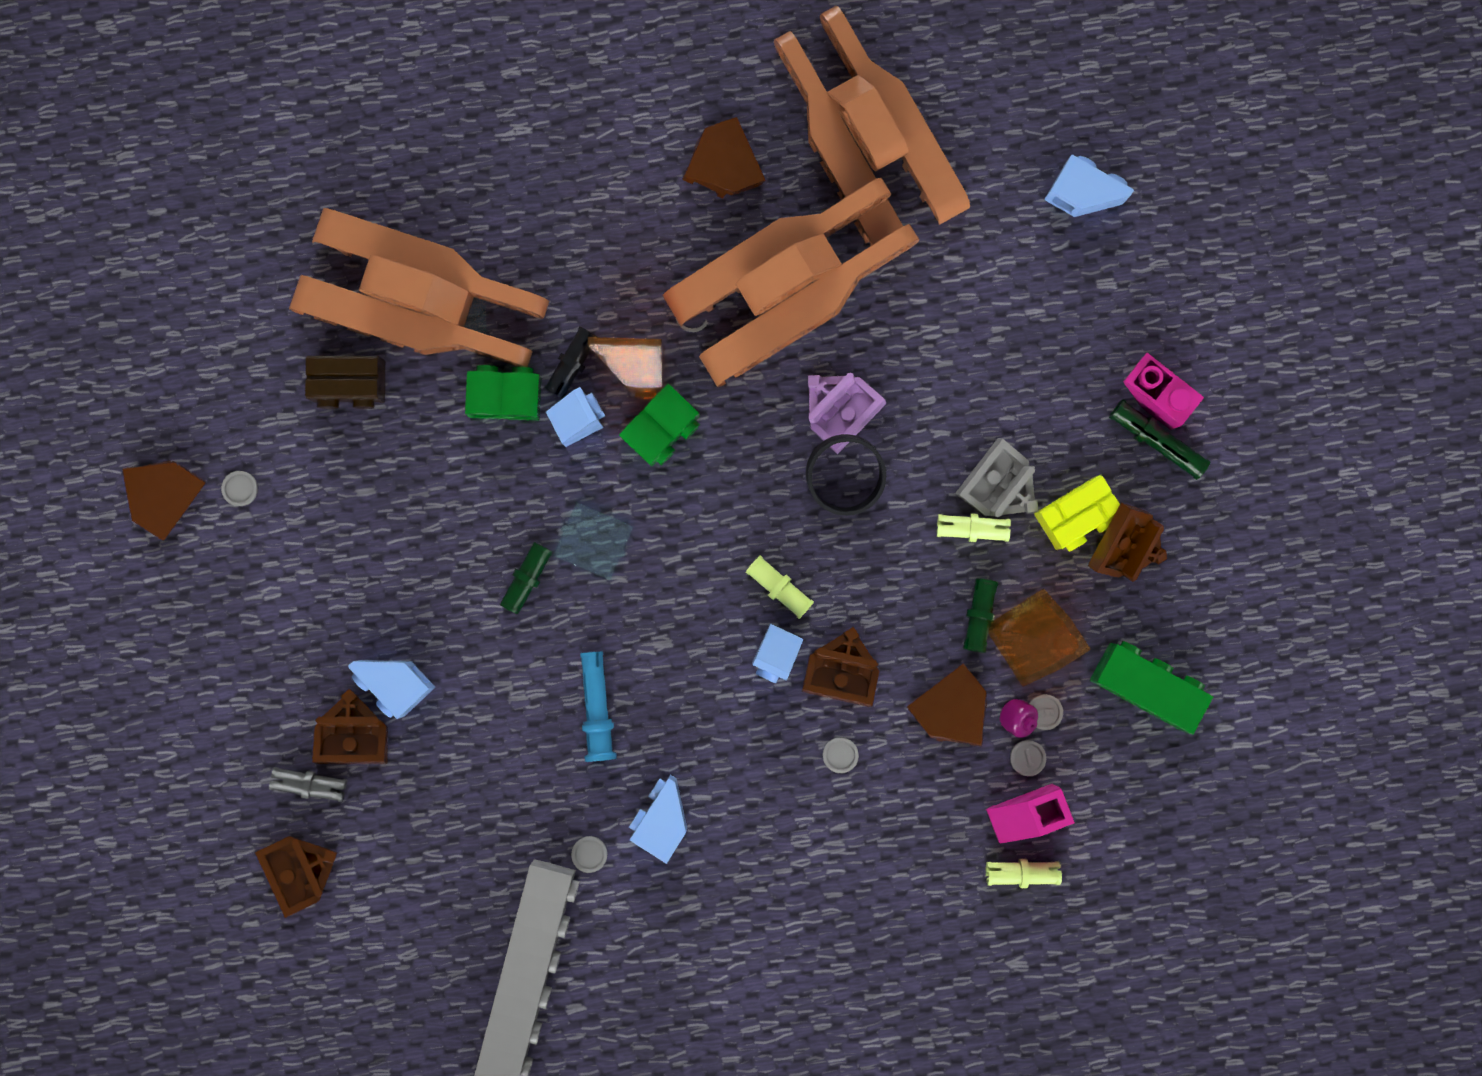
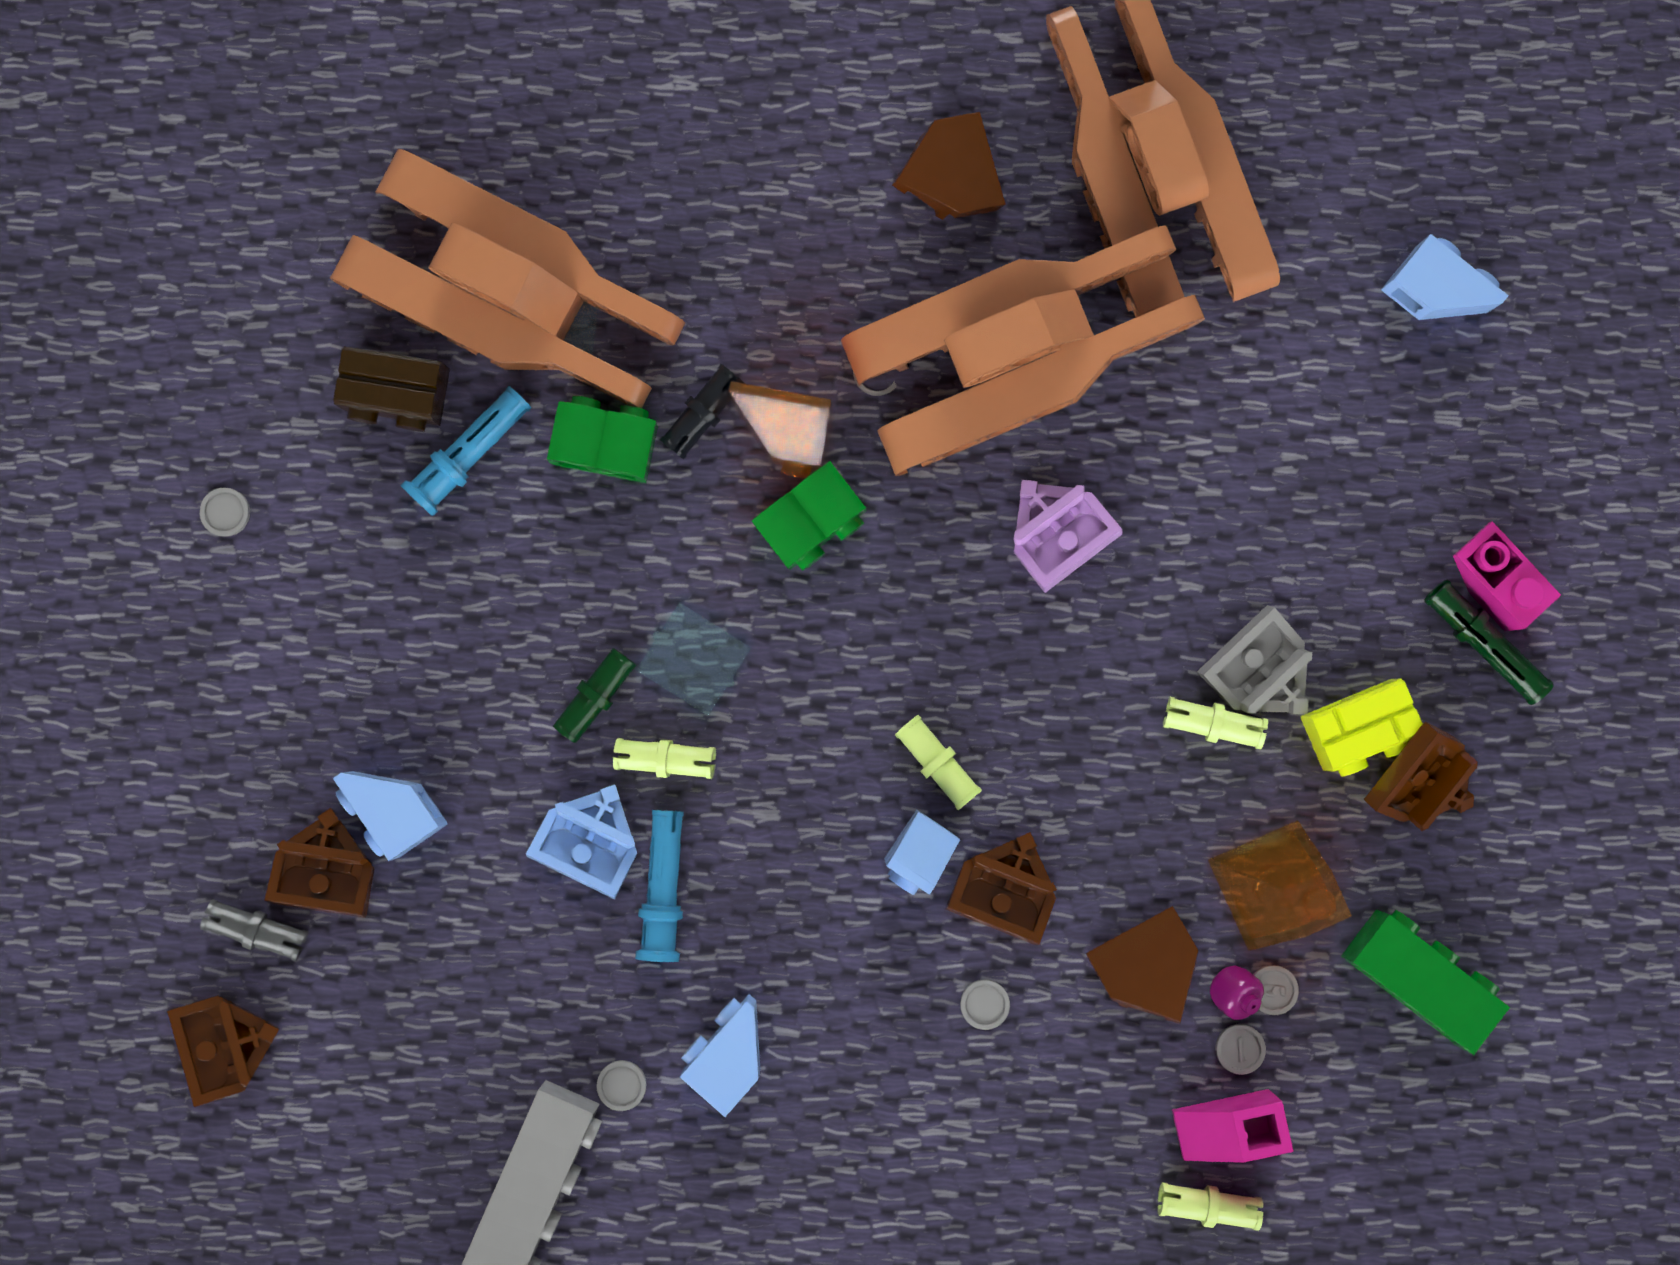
camera: 10 degrees right, 0 degrees up
(160, 495) = (115, 503): reddish brown slope -> none
(397, 430) = (450, 467): none -> dark azure pin
(537, 683) = (587, 841): none -> light blue slope
(576, 416) = (697, 486): light blue slope -> none
(583, 615) = (664, 758): none -> yellowish green pin
(871, 500) = (1086, 658): black tyre -> none
(980, 615) = (1206, 844): dark green pin -> none

